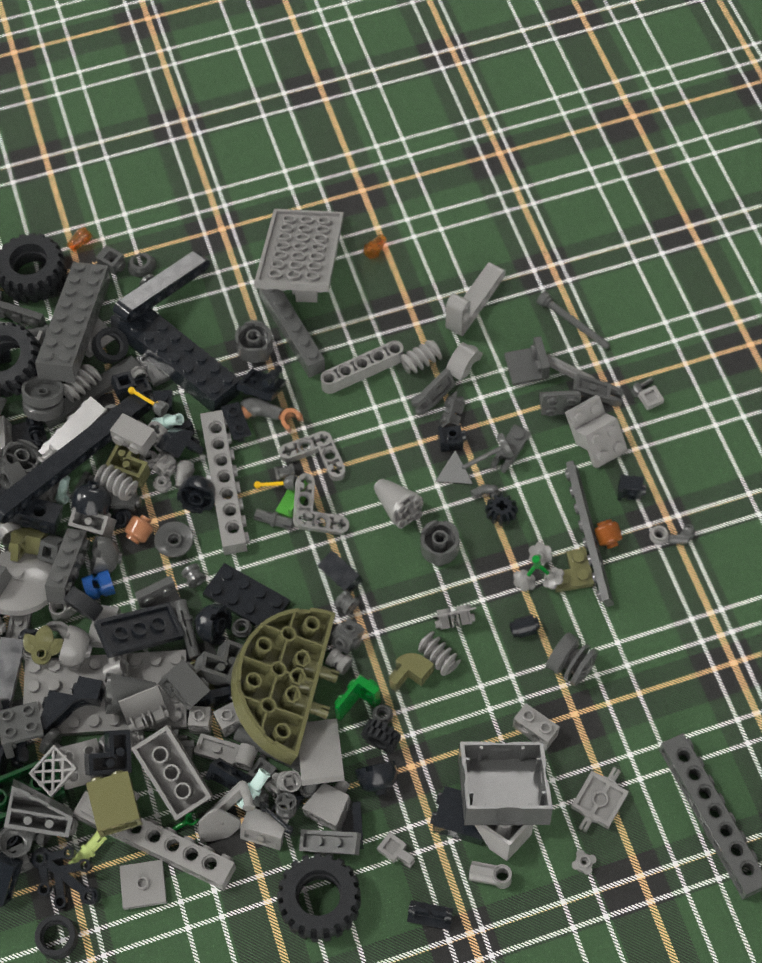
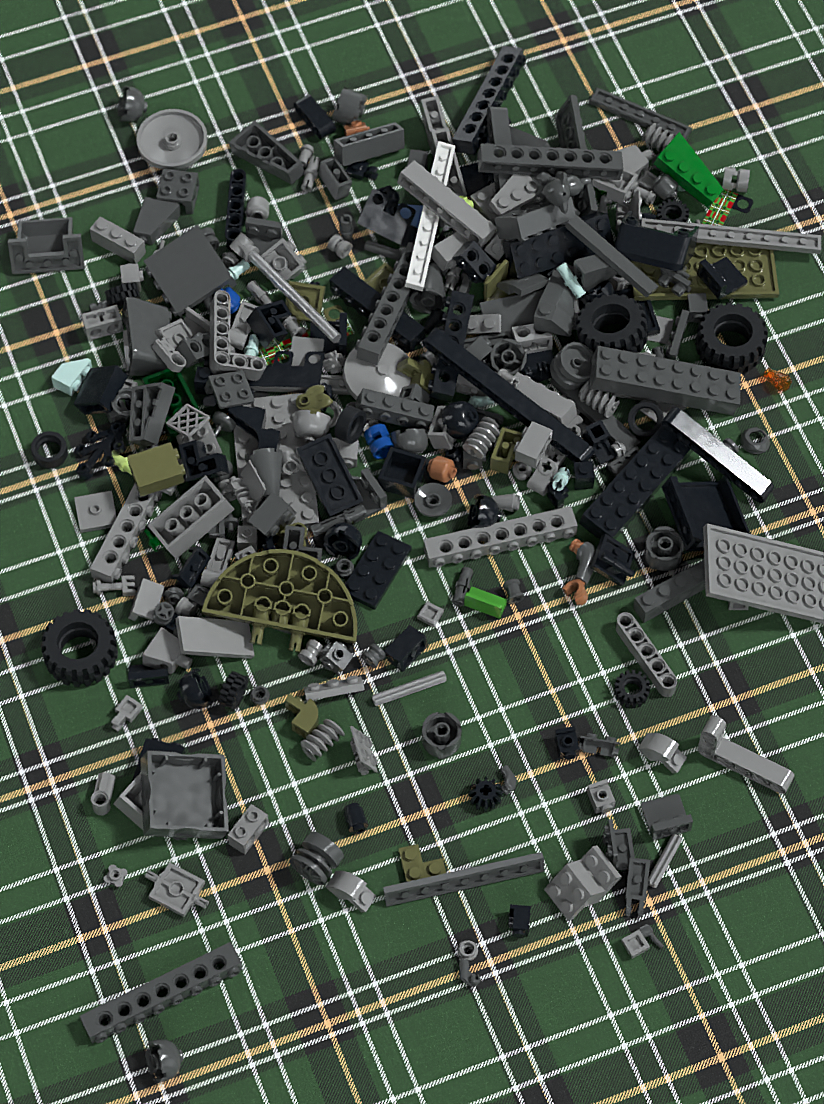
camera: 85 degrees right, 0 degrees up
(112, 258) = (752, 409): dark grey brick -> none
(140, 563) = (402, 472): none -> black piece
(159, 407) = (570, 466): dark grey hinge -> none
(162, 488) = (496, 489): light grey plate -> none
(164, 464) = (513, 483): light grey gear -> none
(176, 440) = (537, 487): black brick -> none
(193, 575) = (395, 520): dark grey wheel -> none
(218, 823) = (147, 558): light grey piece -> none
(222, 302) = (702, 503): none -> black panel
(236, 421) = (566, 539): black hinge -> none
(241, 880) = (126, 585): none -> light grey hinge
(255, 785) = (176, 584): light aqua pin -> none
(264, 807) = (163, 598): black hinge -> none
(289, 483) = (500, 595): hinge -> none
(292, 781) = (179, 609): light grey wheel -> none
(301, 551) = (430, 614): none -> light grey tile
(307, 511) = (466, 609): light grey beam -> none
(321, 448) = (546, 623): light grey beam -> none
(330, 842) = (130, 653): dark grey plate -> none
(357, 688) = (274, 663): green bracket -> none
(374, 247) = (803, 659): clear orange cone -> none
(381, 641) = (333, 688): none -> light grey plate
(383, 573) = (409, 688): none -> light grey axle
(396, 372) = (629, 699): none -> black tyre
(399, 502) = (484, 695): light grey cone -> none
(420, 355) = (662, 711): light grey piece -> none
(430, 915) = (67, 744): black hinge -> none
(433, 392) = (620, 724): dark grey hinge -> none
(455, 470) = (527, 750): piece -> none
(506, 414) = (601, 804): none -> light grey brick
(516, 439) = (562, 803): dark grey hinge -> none
(539, 556) = (408, 820): light grey plant -> none
(546, 300) = (752, 834): dark grey piece -> none
(601, 631) = (351, 888): none -> light grey brick
(608, 533) = (463, 897): dark orange head -> none

